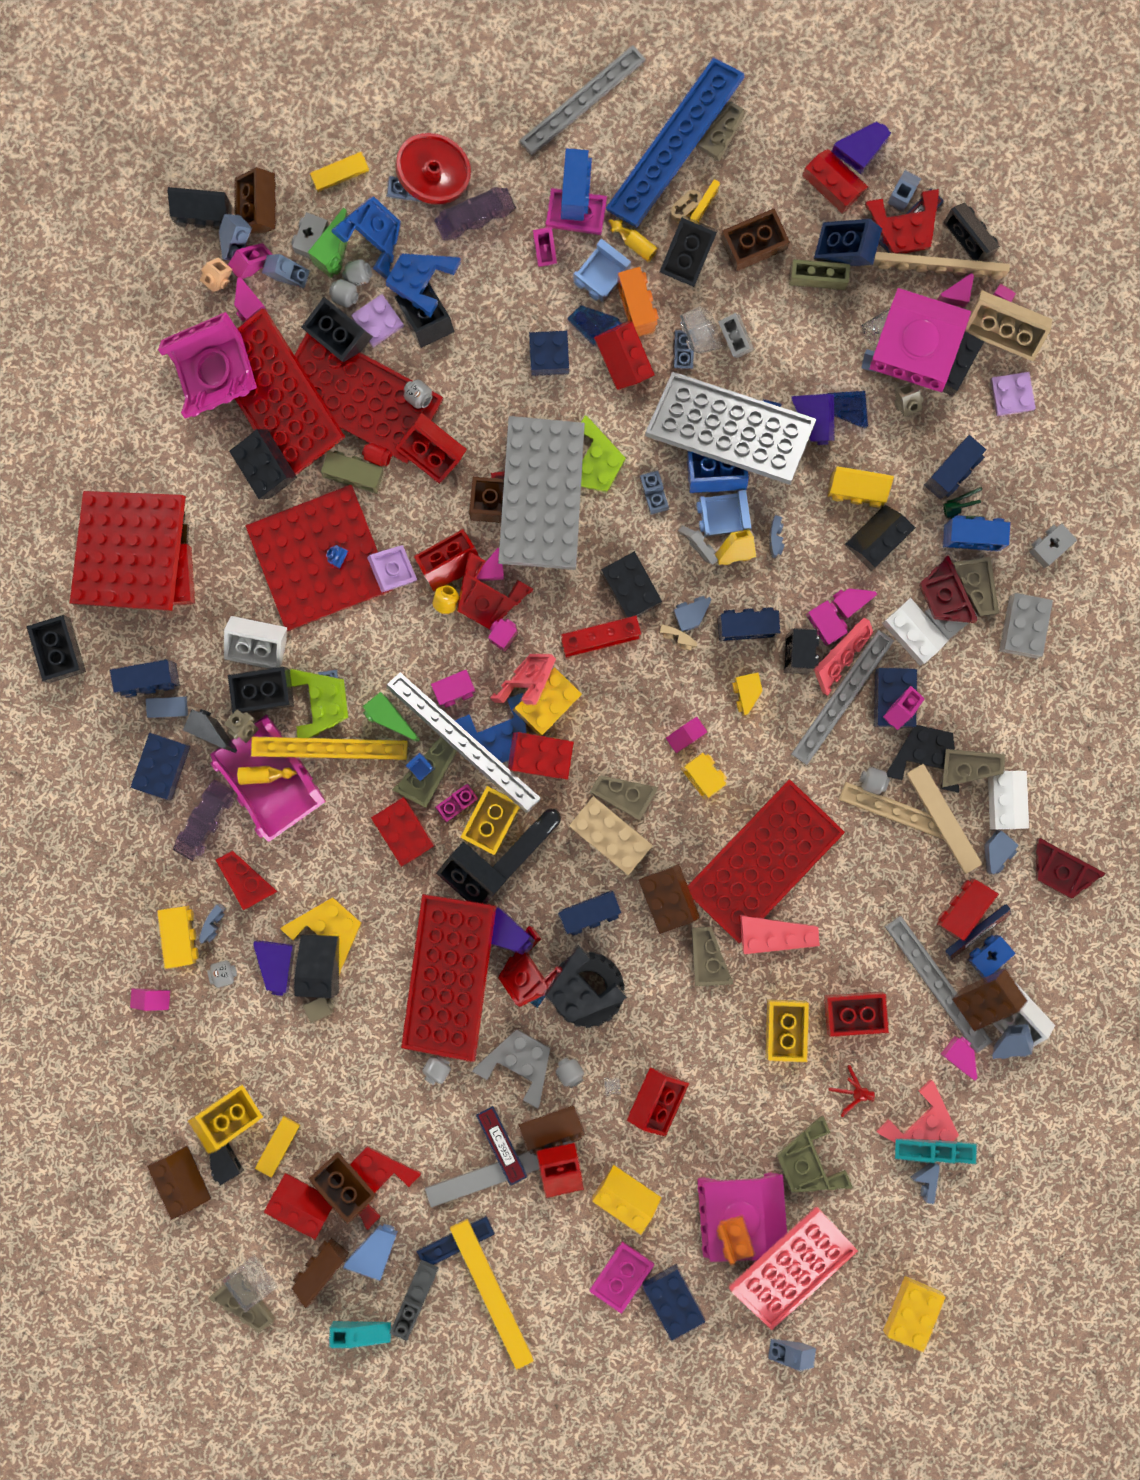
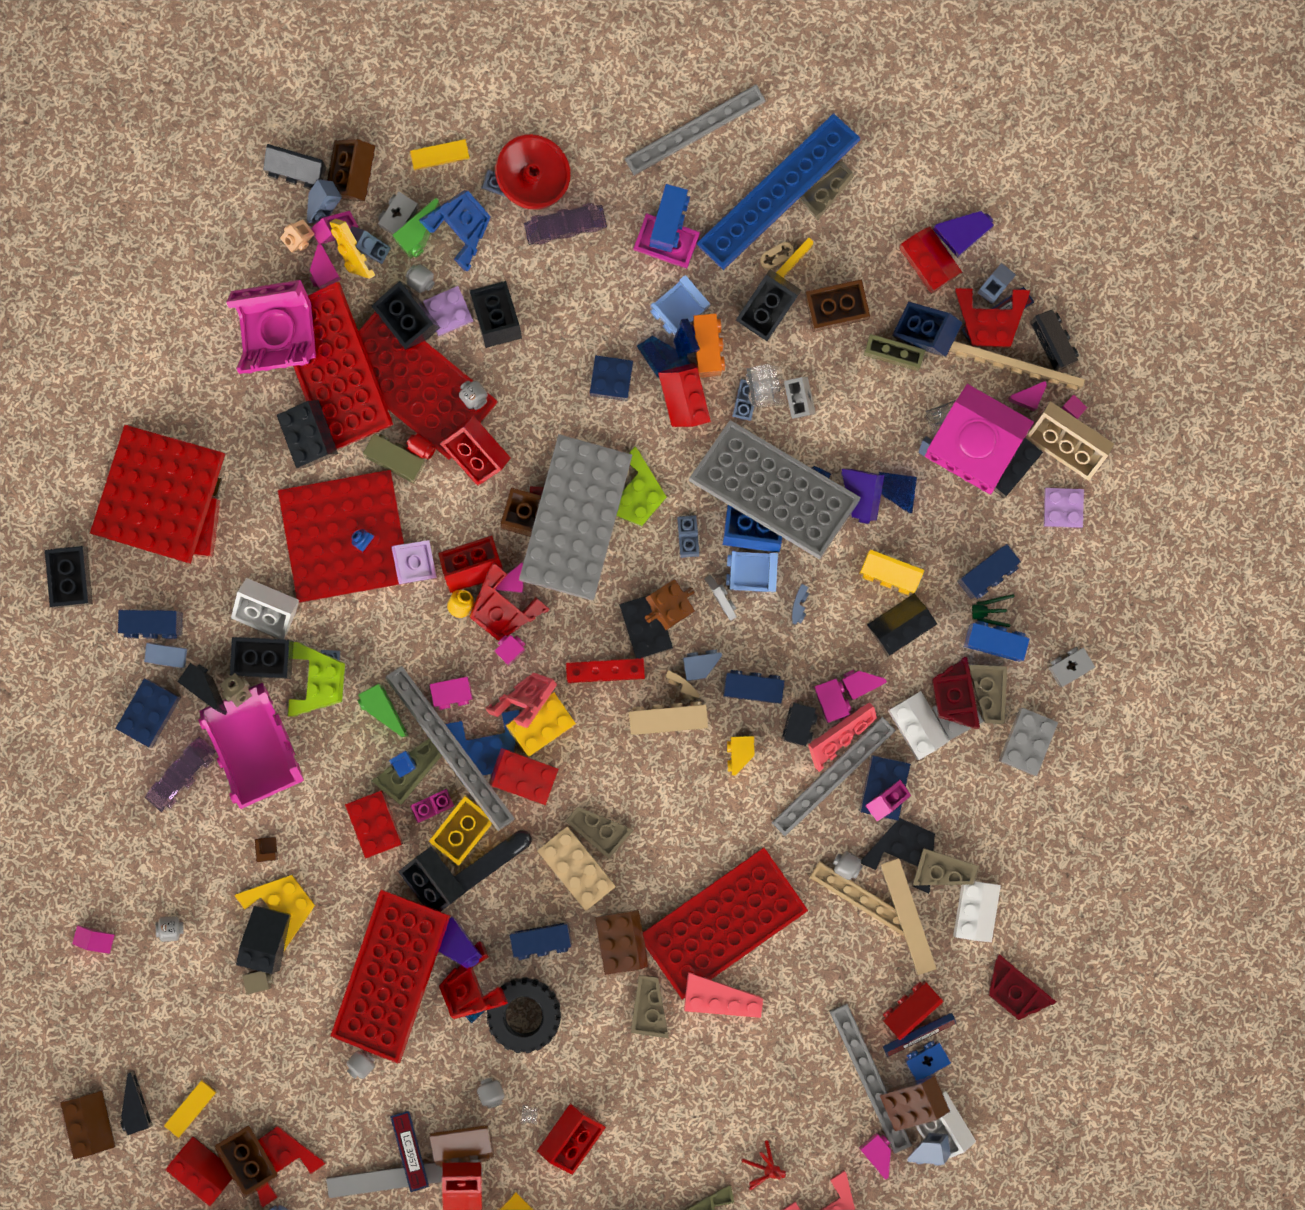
camera: 10 degrees right, 0 degrees up
(177, 936) = (133, 884): yellow slope -> none
(209, 929) = (165, 881): sand blue slope -> none
(225, 1119) = (145, 1071): yellow brick -> none
(244, 881) = (208, 841): red wing -> none
(262, 774) = (247, 740): yellow wheel -> none
(273, 283) = (346, 242): none -> yellow wing
(275, 965) = (223, 930): dark purple slope -> none
(302, 877) = (266, 849): none -> reddish brown panel
(329, 748) = (317, 728): yellow tile -> none
(357, 272) = (437, 260): light grey head -> none
(412, 275) = (491, 274): blue wing -> none
(523, 1056) = (448, 1068): light grey wing -> none
(544, 246) = (628, 271): dark pink slope -> none
(574, 995) = (509, 1019): black wing -> none
(614, 299) = (685, 339): none -> clear blue wing
(634, 240) = (718, 281): yellow wheel -> none
(650, 559) = (670, 604): none -> dark orange plate
(671, 672) = (668, 719): none -> tan brick
(686, 734) = (672, 783): dark pink slope -> none
(704, 775) = (679, 829): yellow brick -> none
(736, 547) = (757, 608): yellow slope -> none
(787, 1030) = (711, 1094): yellow brick -> none
(856, 1014) = (782, 1091): red brick -> none
(908, 399) = (957, 498): dark tan brick -> none
(998, 850) = (955, 958): sand blue slope -> none

